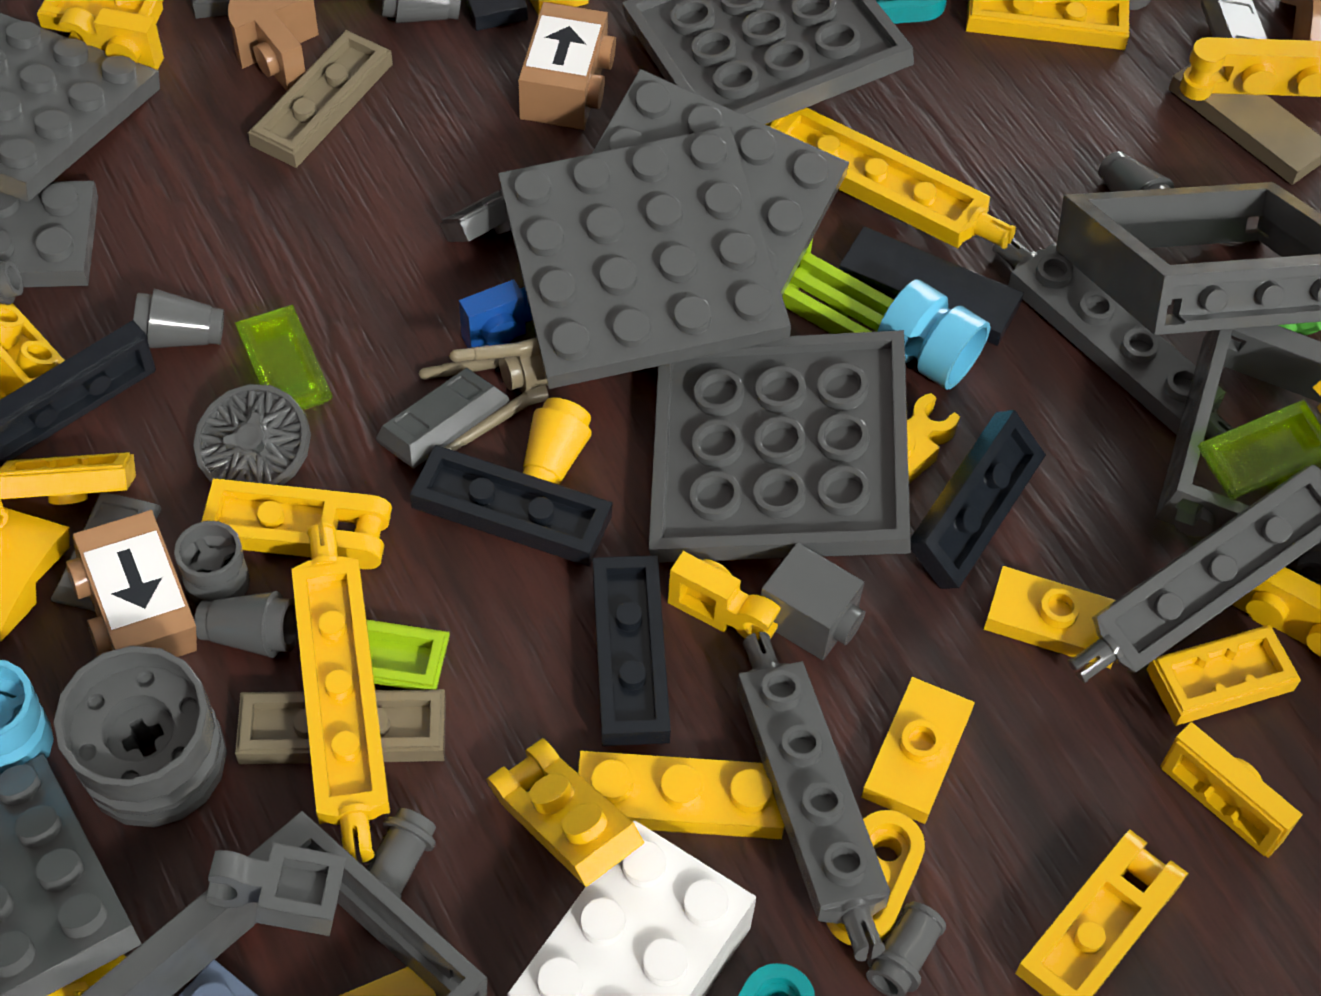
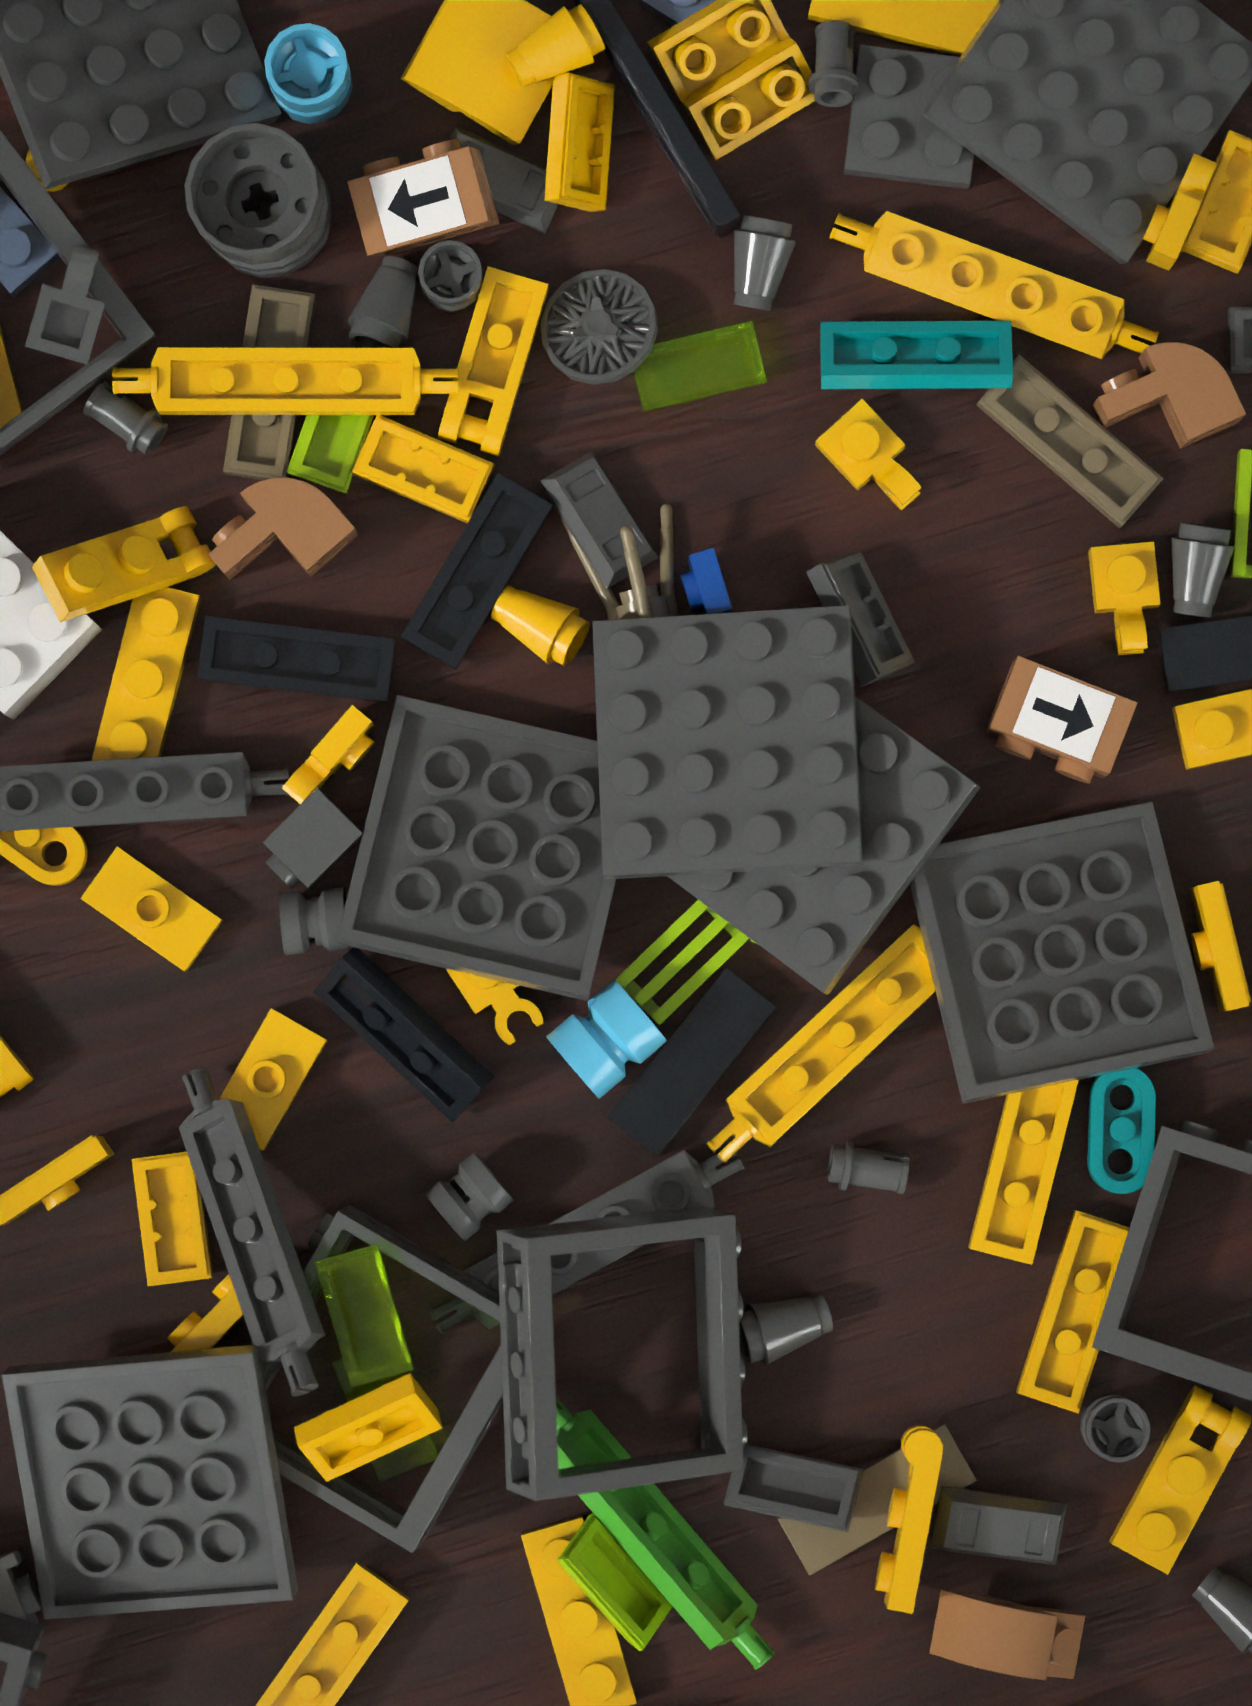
camera: 100 degrees right, 30 degrees up
(183, 164) = (993, 284): none -> yellow plate
(256, 197) = (916, 355): none -> teal plate
(349, 231) = (865, 450): none -> yellow plate
(414, 565) = (423, 469): none -> yellow plate
(443, 48) = (1125, 583): none -> yellow plate
(485, 676) = (287, 512): none -> medium nougat brick
(891, 590) = (311, 920): none -> dark grey wheel
(965, 53) = (1022, 1172): none -> yellow plate
(982, 159) = (867, 1168): none -> dark grey pin
(1111, 424) = (477, 1183): none -> dark grey wheel
(1269, 146) = (795, 1488): none -> dark grey tile

